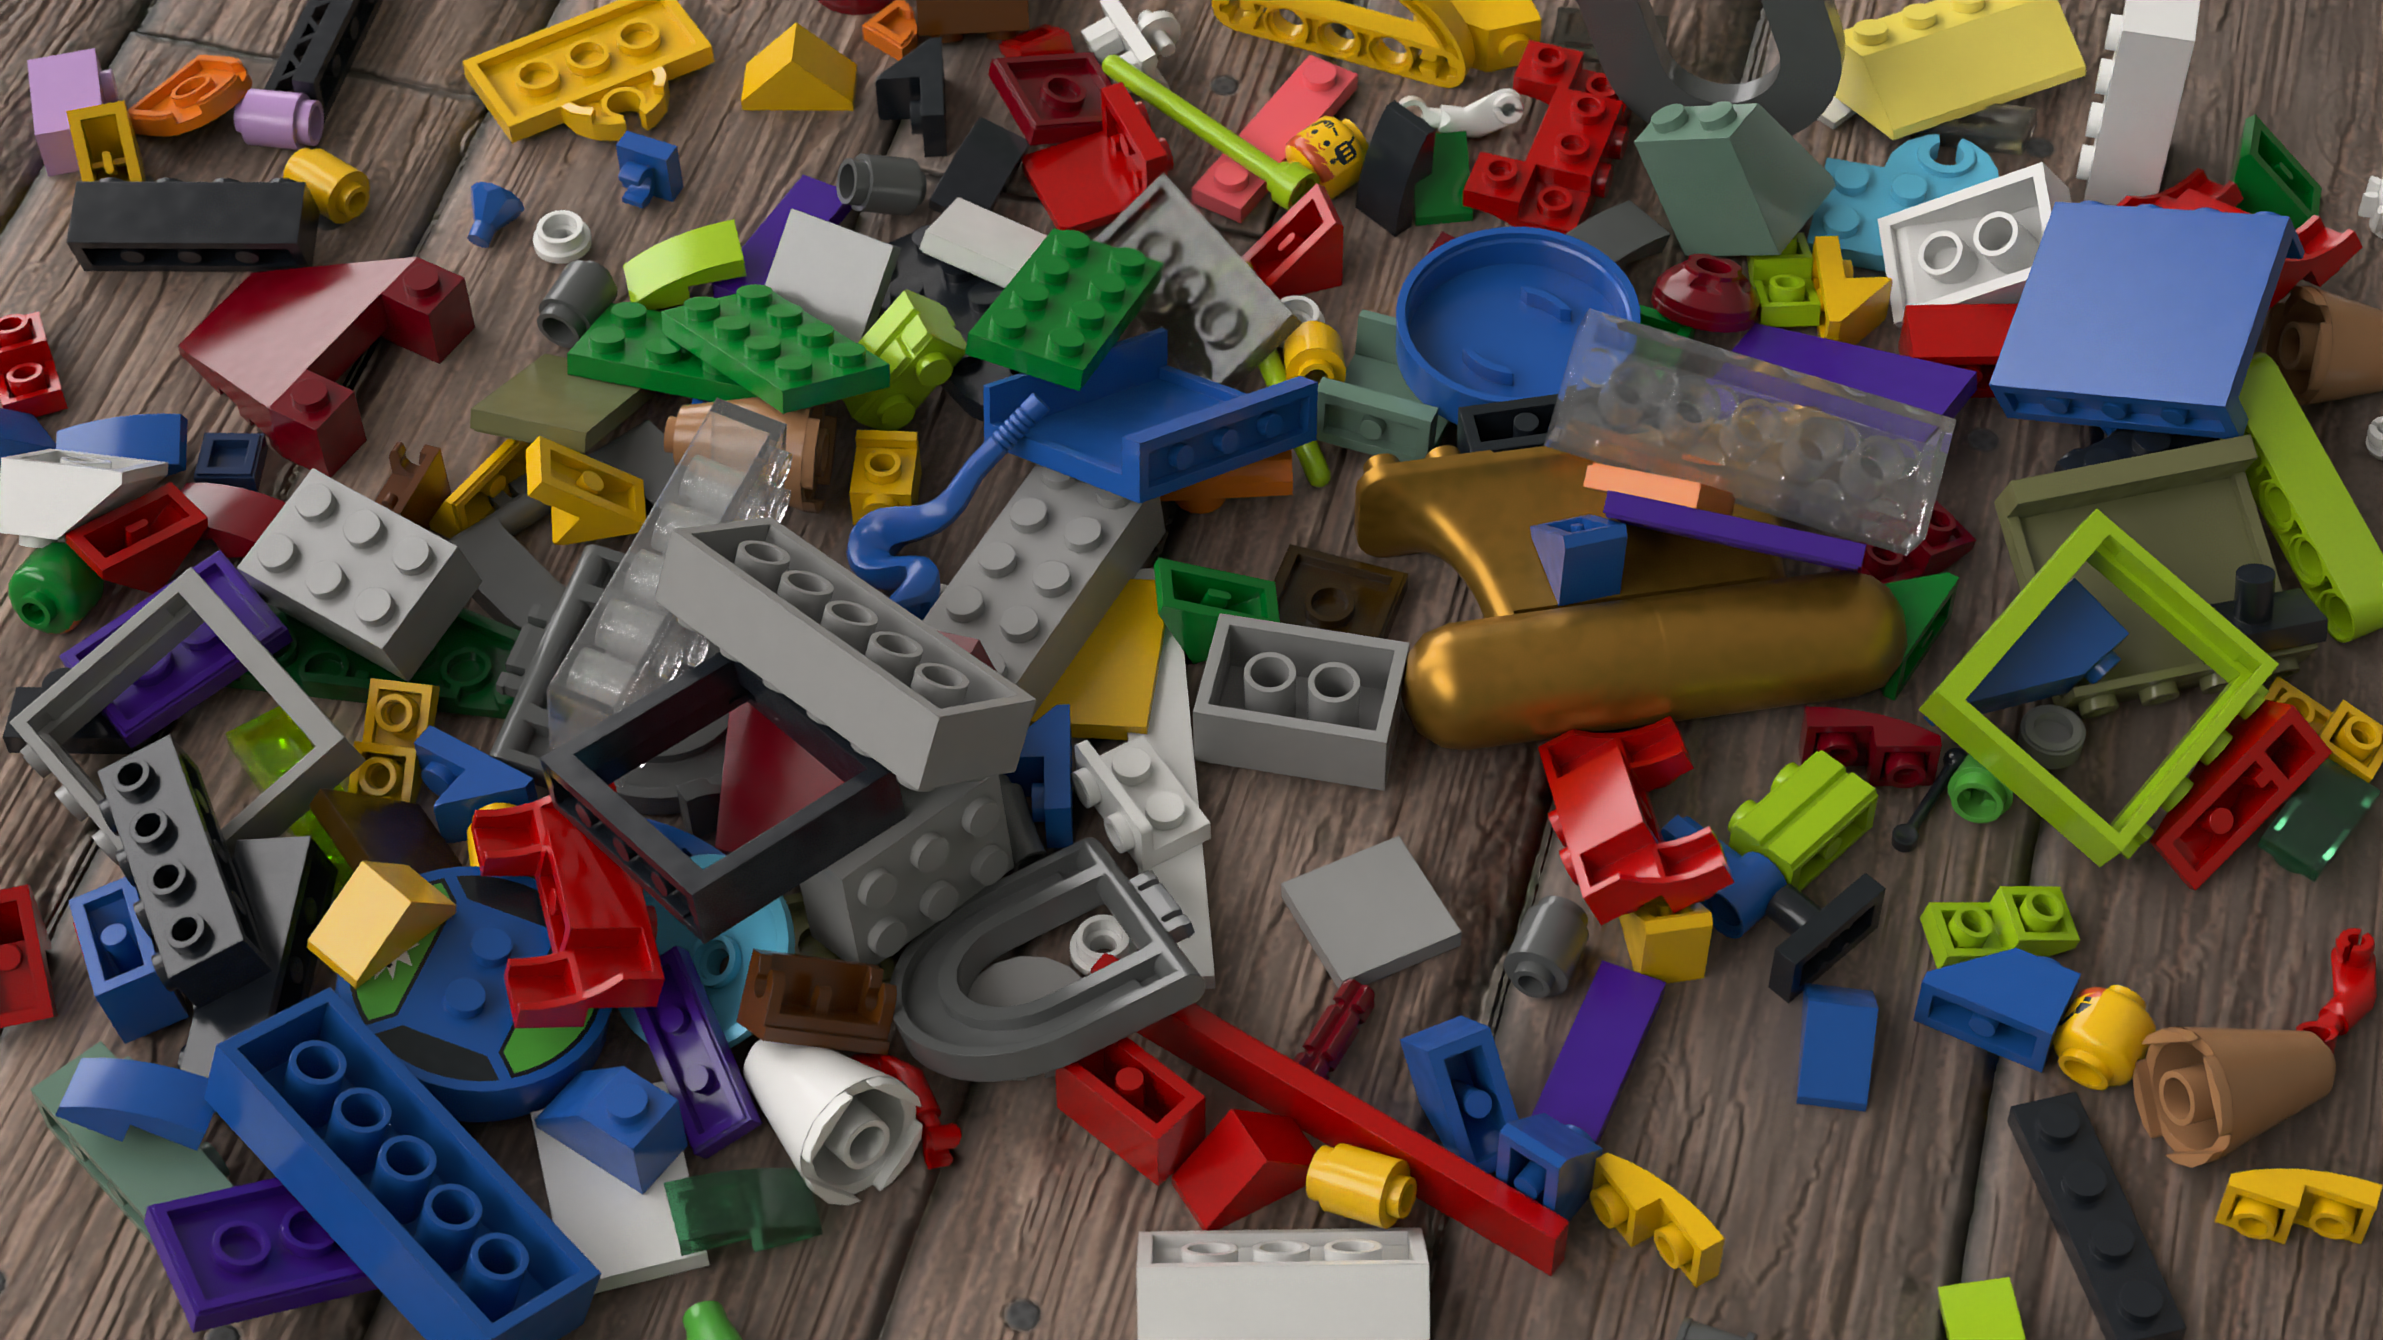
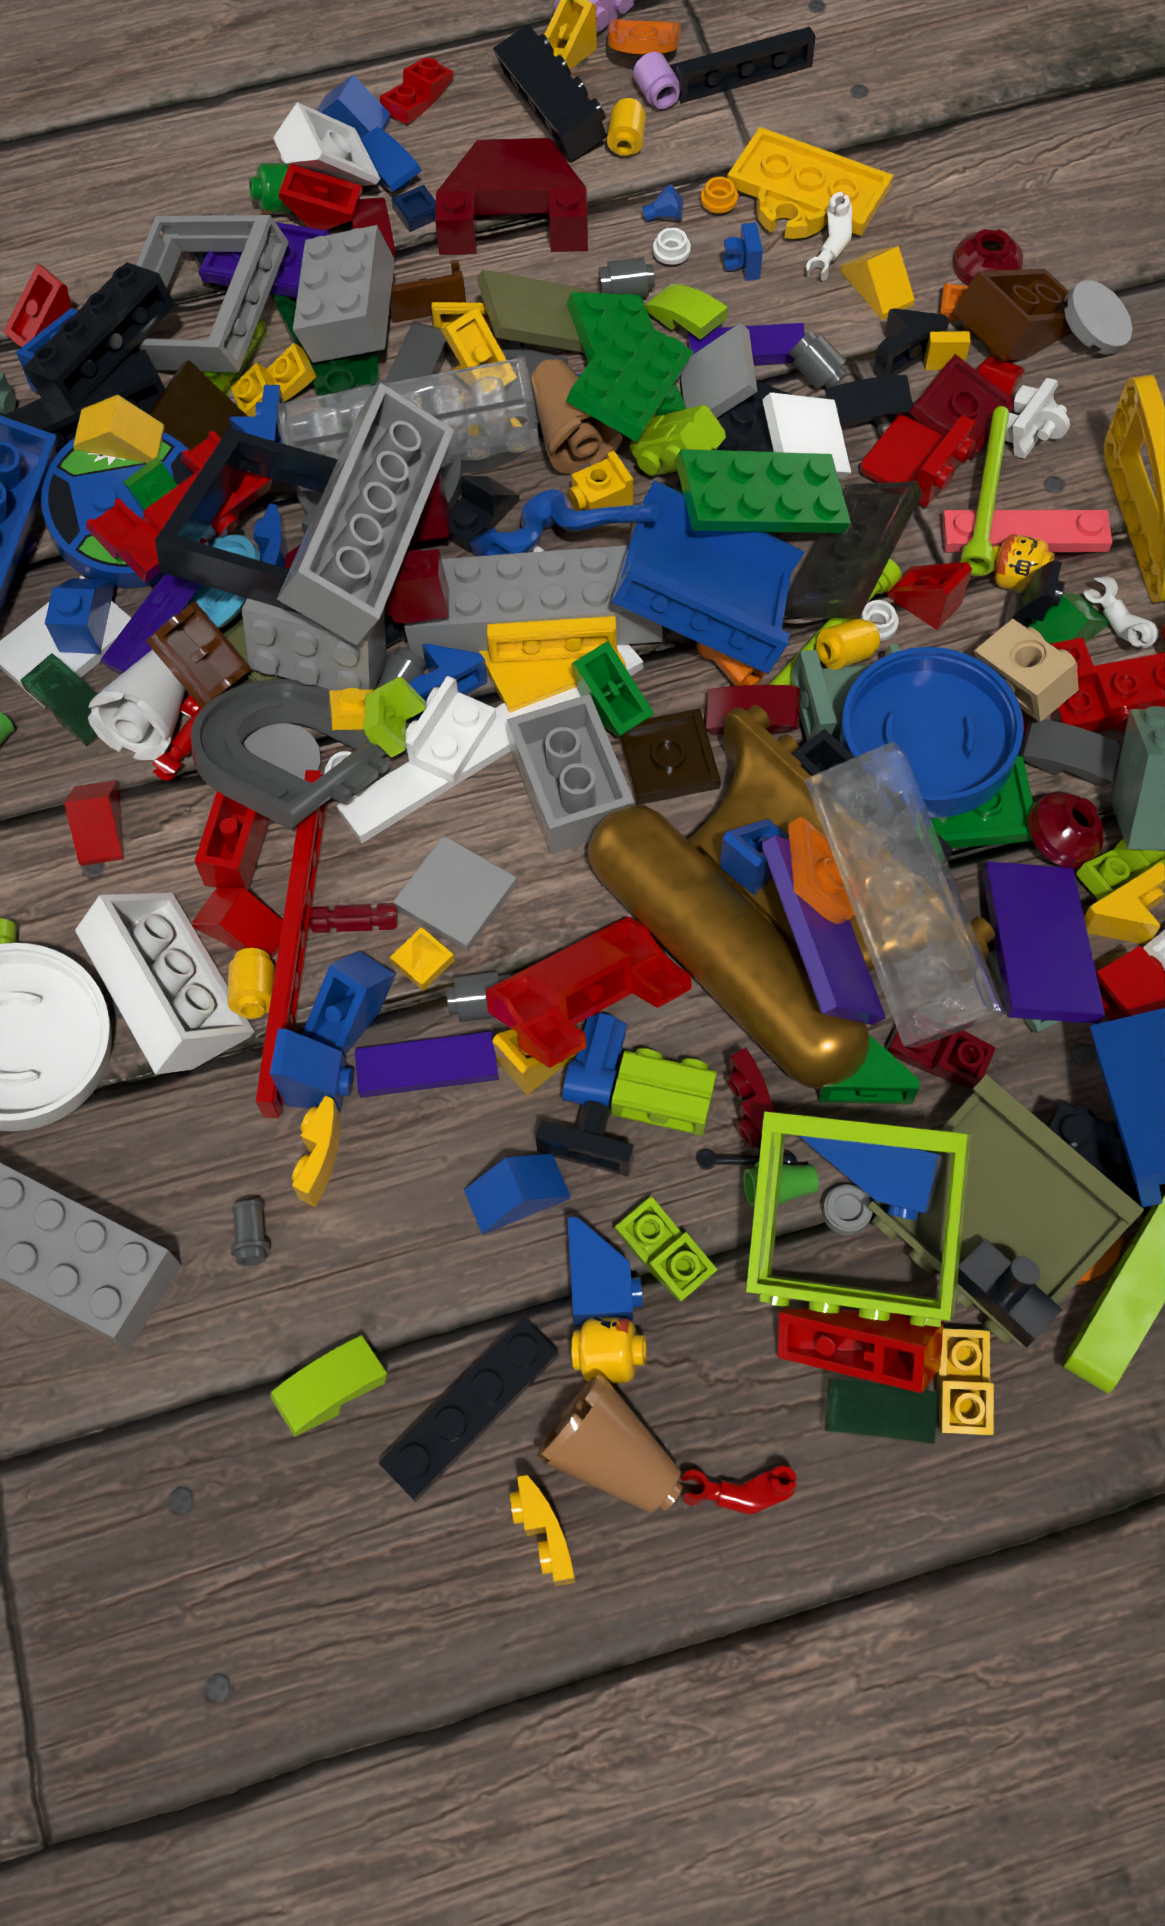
camera: 60 degrees right, 15 degrees up
(512, 919) = (150, 483): none -> green plate
(524, 154) = (719, 195): none -> light orange plate
(707, 73) = (840, 234): none -> white arm
(961, 1265) = (96, 822): none -> red slope
(967, 69) = (943, 346): none -> yellow tile
(1036, 876) = (347, 708): none -> yellow plate
(1079, 822) = (387, 714): none -> lime bracket
(1092, 624) = (549, 638): none -> yellow tile
(1325, 497) = (778, 702): none -> dark red slope
(1442, 990) = (422, 958): none -> yellow tile
(1495, 197) = (1031, 667): none -> tan brick

